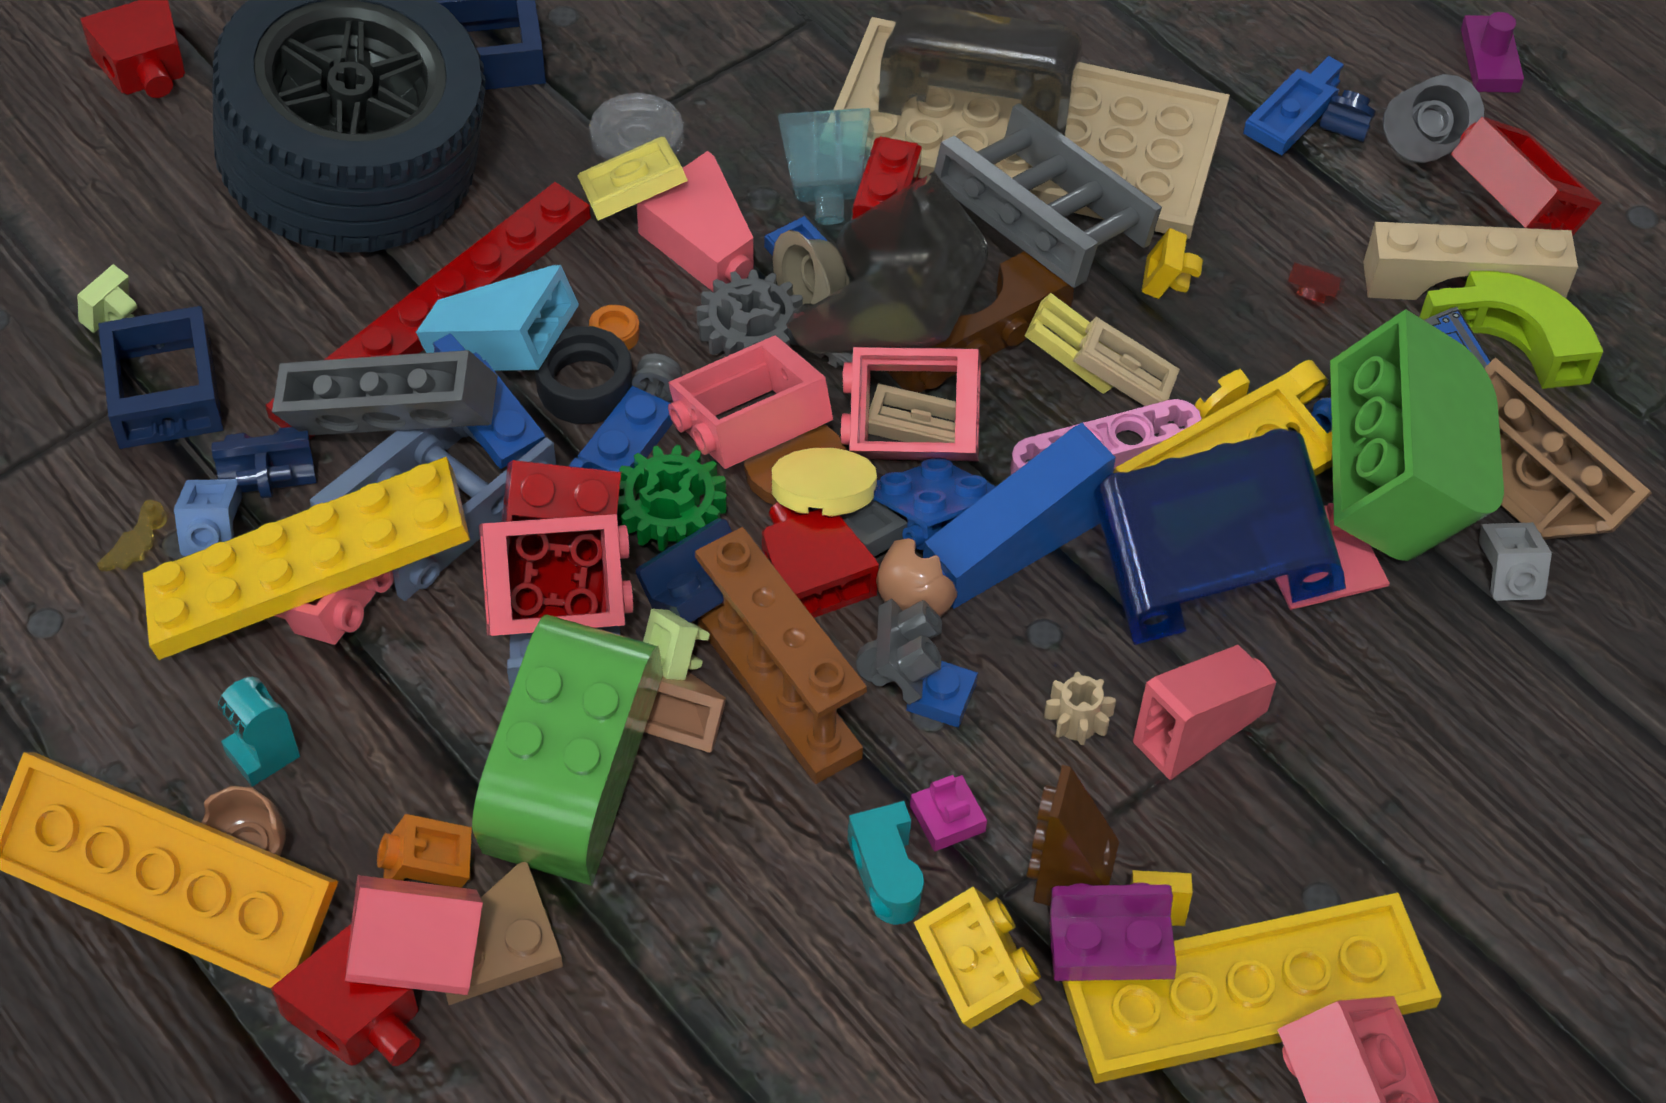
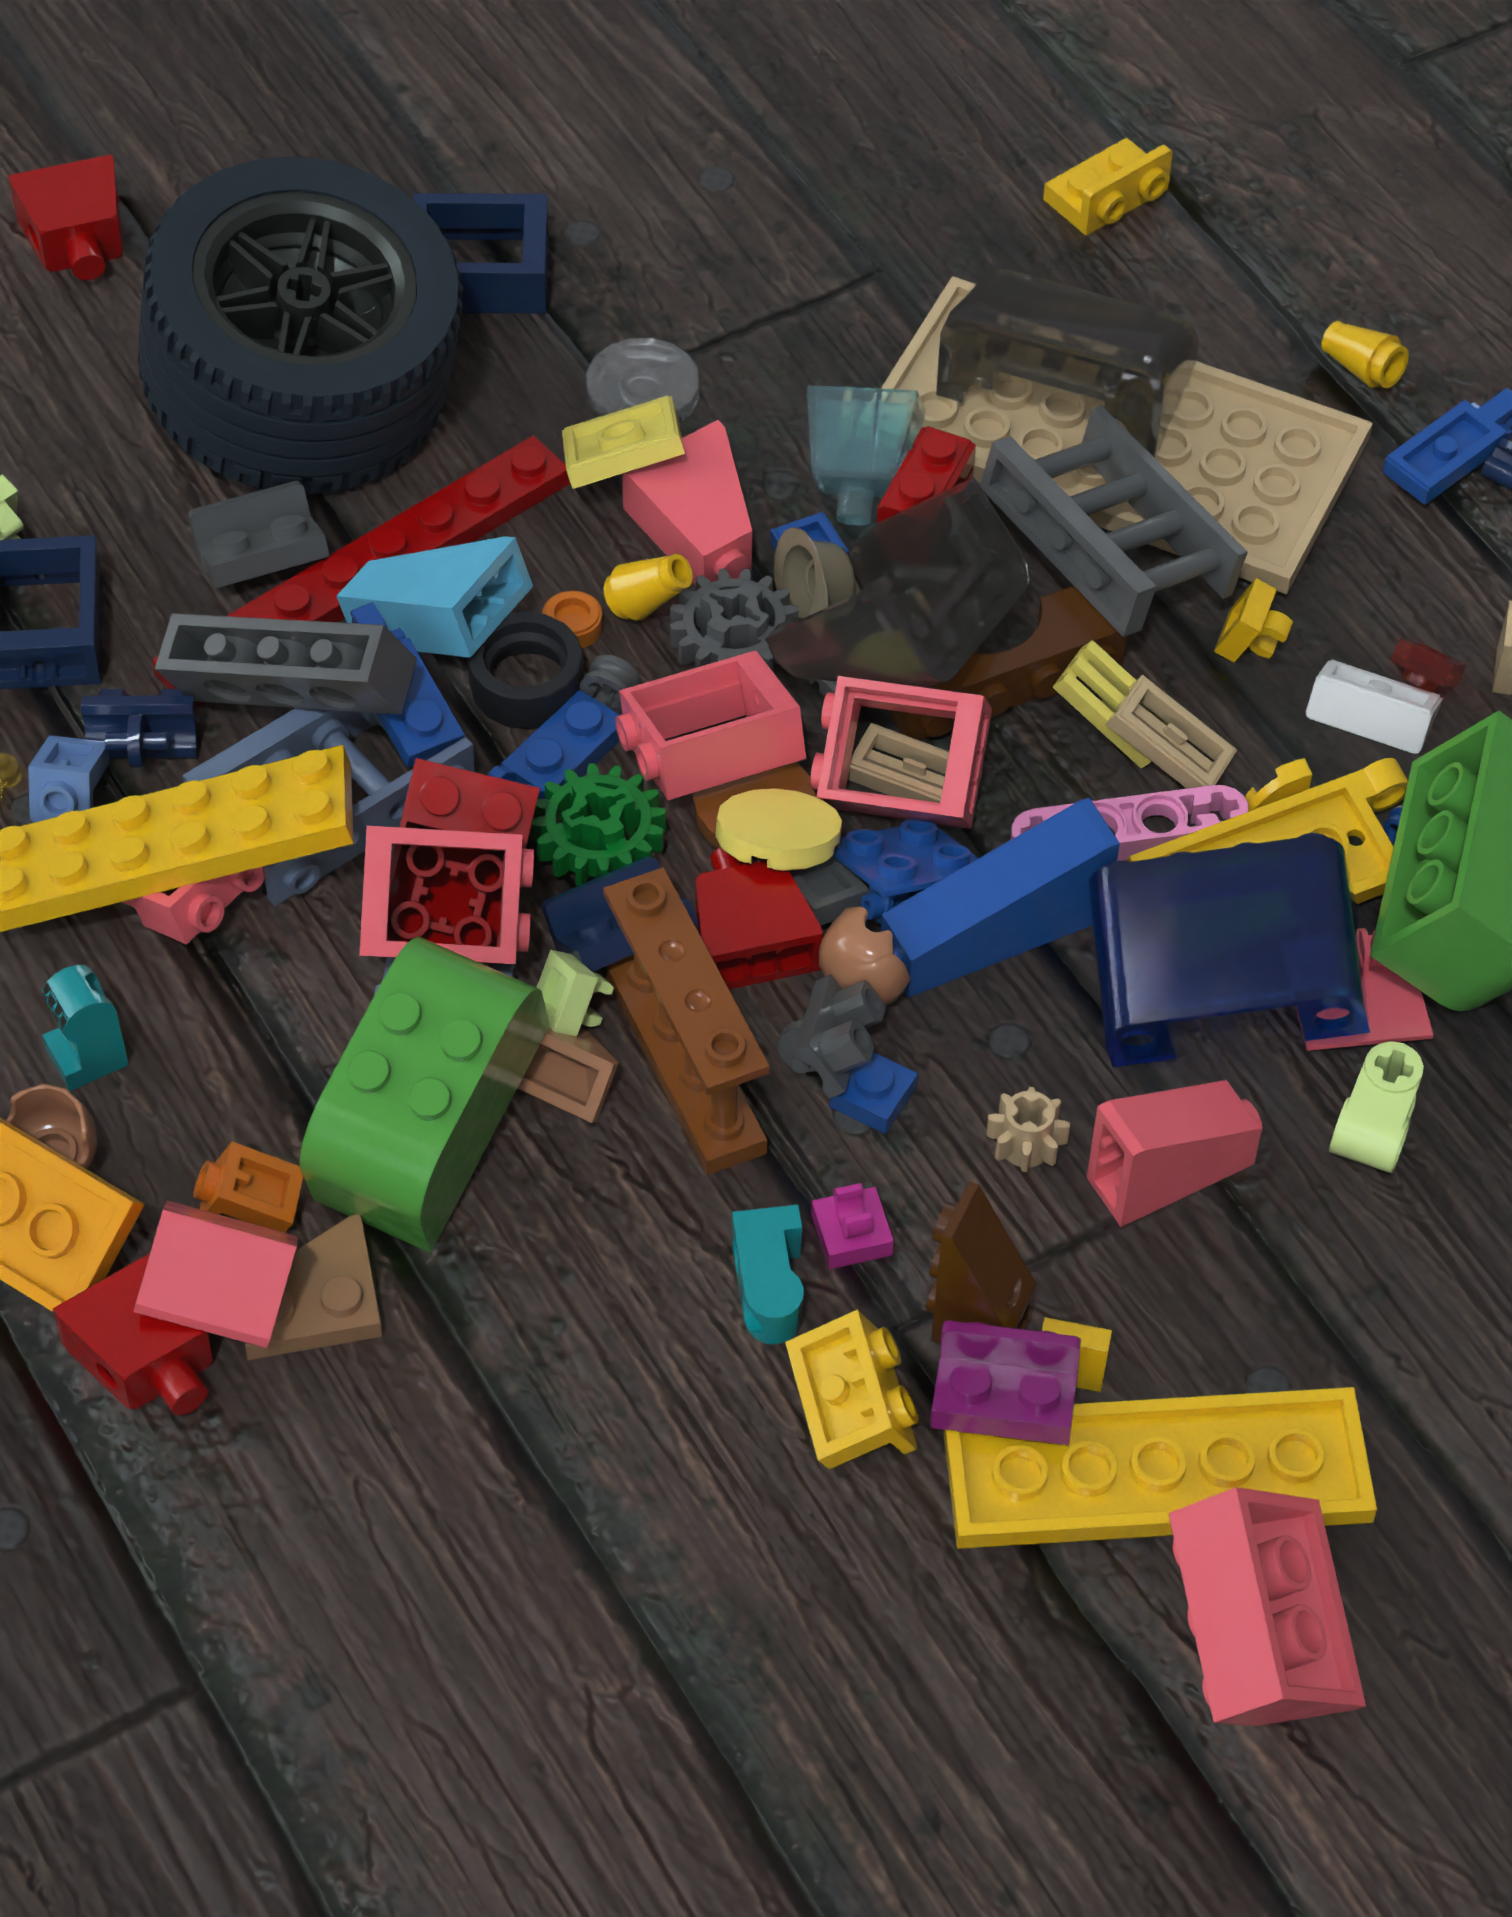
camera: 10 degrees right, 0 degrees up
(337, 289) = (256, 534): none -> dark grey bracket
(671, 293) = (645, 585): none -> yellow cone
(1210, 41) = (1367, 353): none -> yellow cone
(1278, 321) = (1373, 706): none -> white slope
(1363, 650) = (1380, 1107): none -> yellowish green piece

